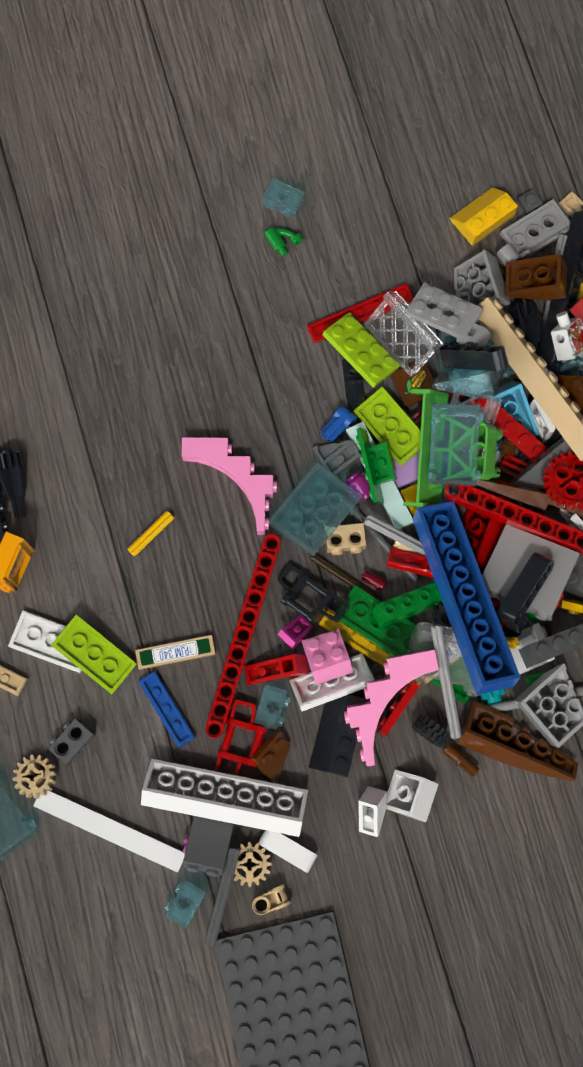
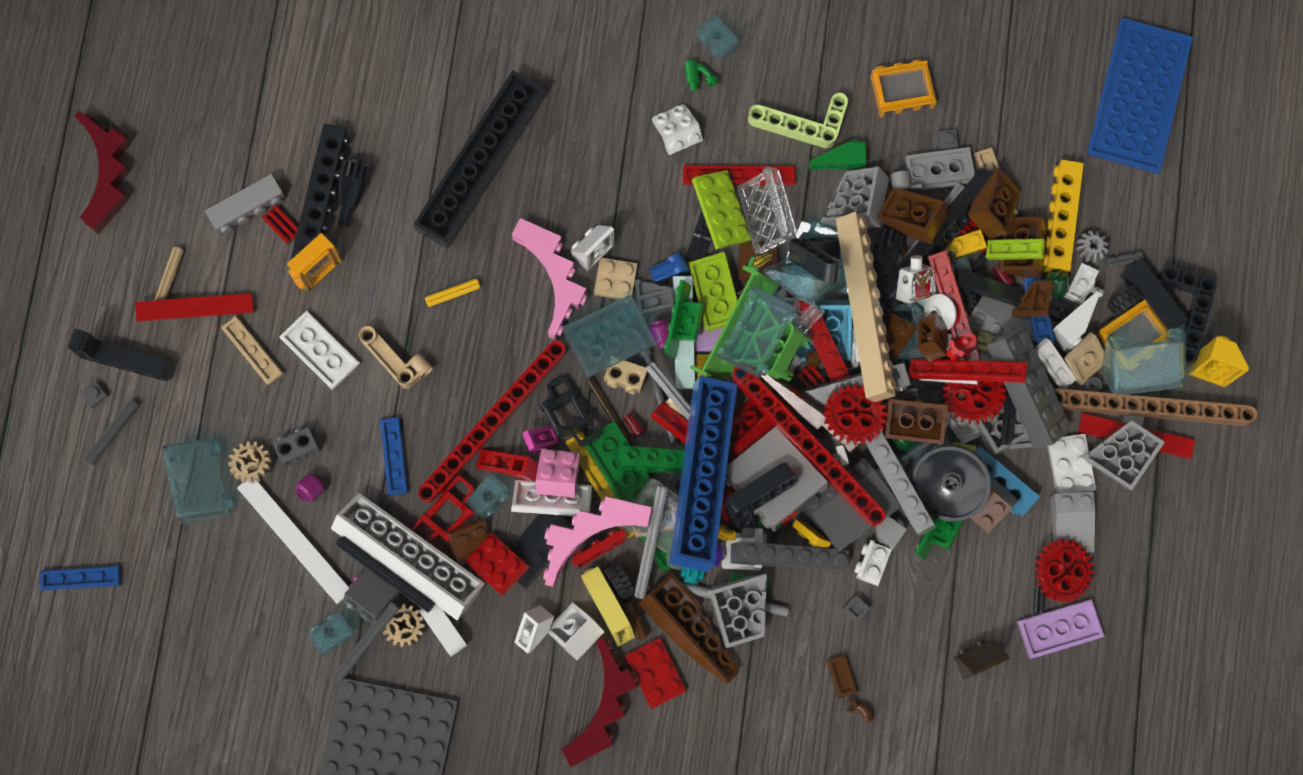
camera: 20 degrees right, 0 degrees up
(93, 654) = (351, 378): lime plate -> none
(102, 774) = (310, 488): none -> magenta head
(119, 401) = (479, 159): none -> black brick
(150, 618) = (417, 367): none -> tan piece
(175, 652) = (425, 409): tile -> none
(212, 824) = (385, 574): none -> black axle
(261, 433) = (593, 246): none -> white slope
(272, 900) = (408, 666): tan piece -> none
(286, 294) = (677, 128): none -> white bracket
(293, 455) = (615, 278): none -> tan plate
(311, 767) = (497, 564): none -> red plate
(414, 241) = (802, 124): none -> yellowish green beam
(430, 758) = (608, 606): none -> light yellow slope
(449, 254) = (844, 157): none -> green slope
(460, 324) = (819, 225): light grey hinge -> none
(469, 172) = (902, 87): none -> window
(475, 886) = (595, 737): none -> dark red arch
(484, 215) = (897, 134): yellow slope -> none
(501, 800) = (655, 673): none -> red plate

